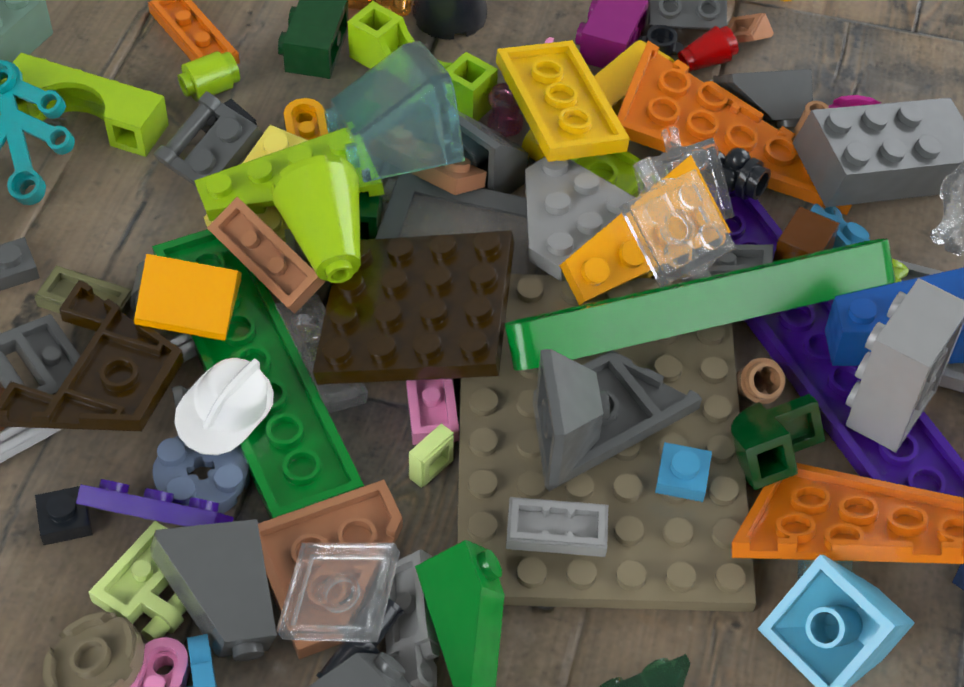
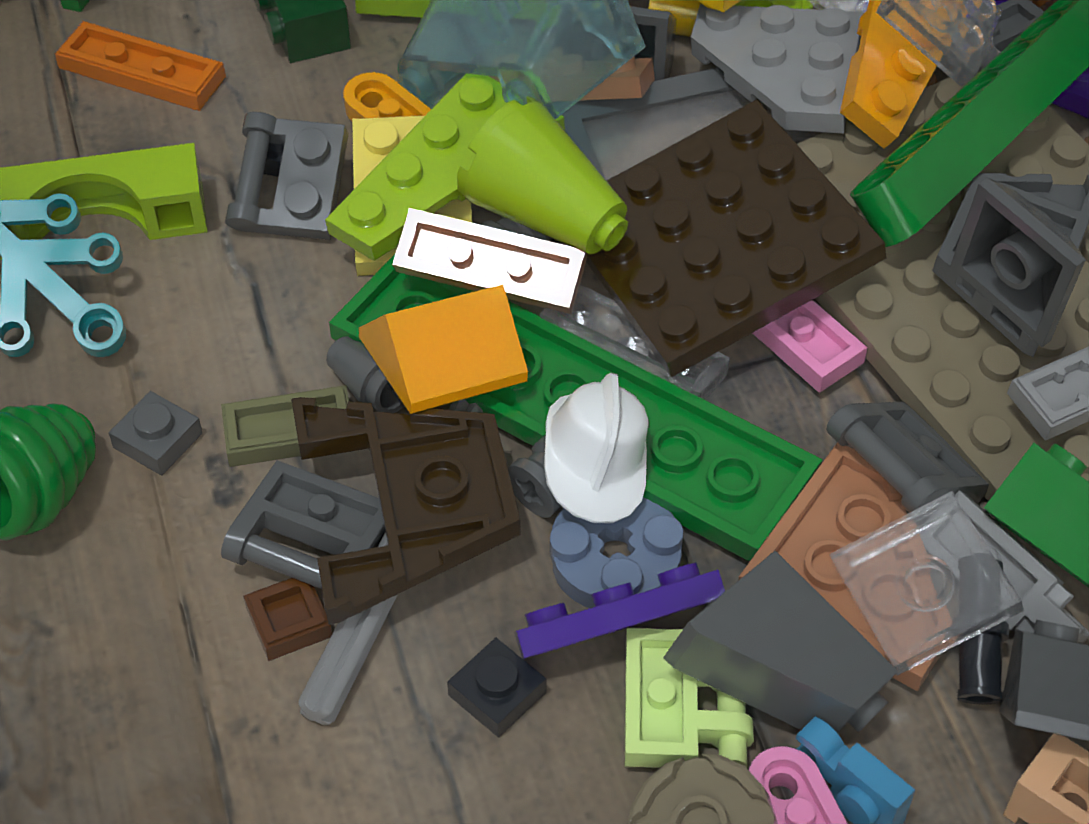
camera: 30 degrees left, 0 degrees up
(209, 73) = (214, 101): lime brick -> none
(430, 506) = (905, 452): none -> dark grey plate
(431, 455) = (863, 375): yellowish green tile -> none

